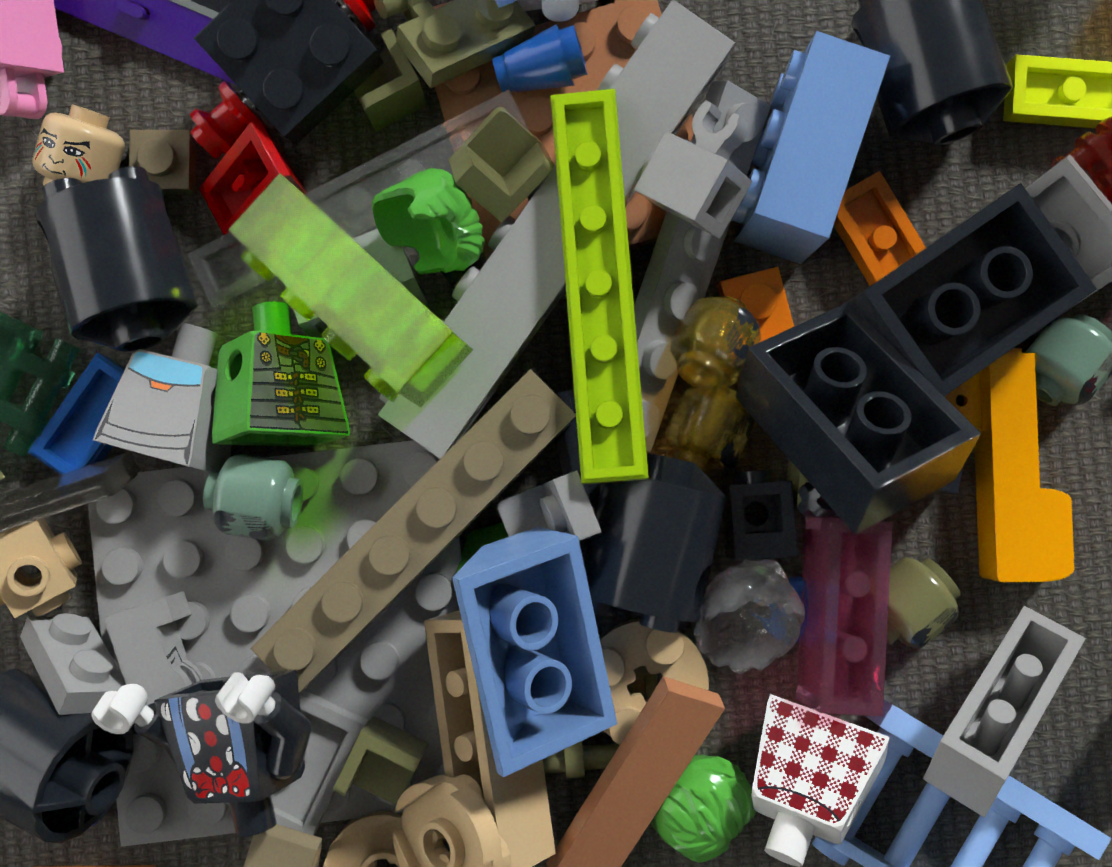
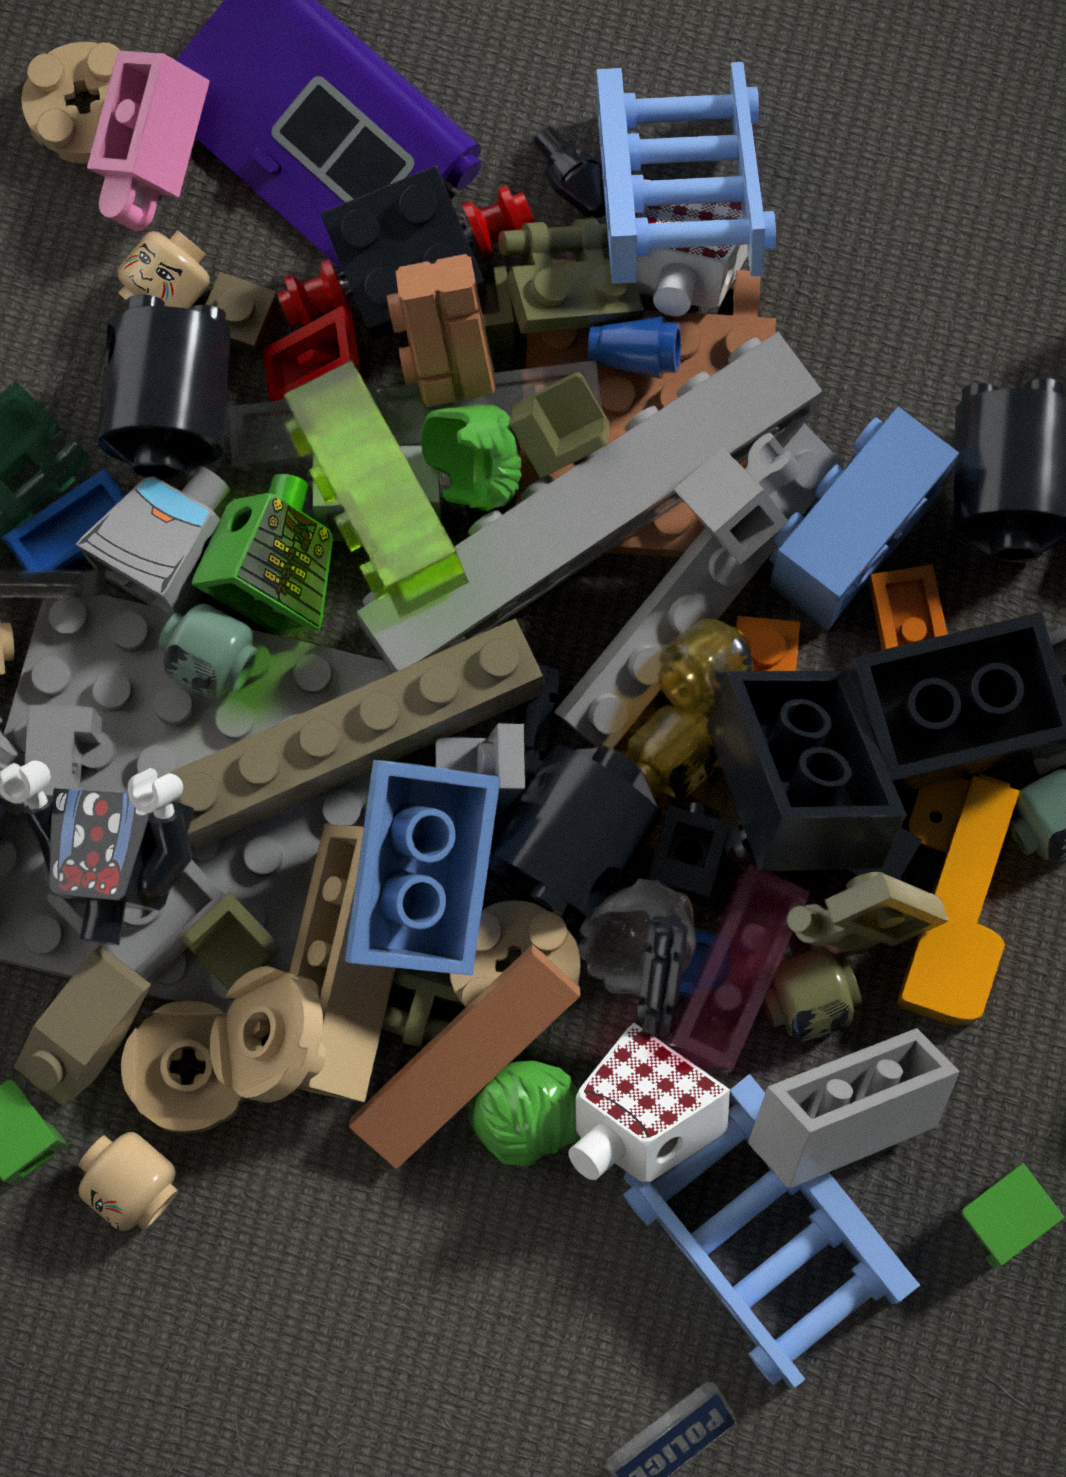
camera: 25 degrees right, 10 degrees down
(356, 110) = (444, 331): none -> nougat brick
(599, 287) = (607, 568): lime tile -> none
(787, 651) = (661, 975): none -> black axle
(958, 520) = (866, 914): none -> olive plate

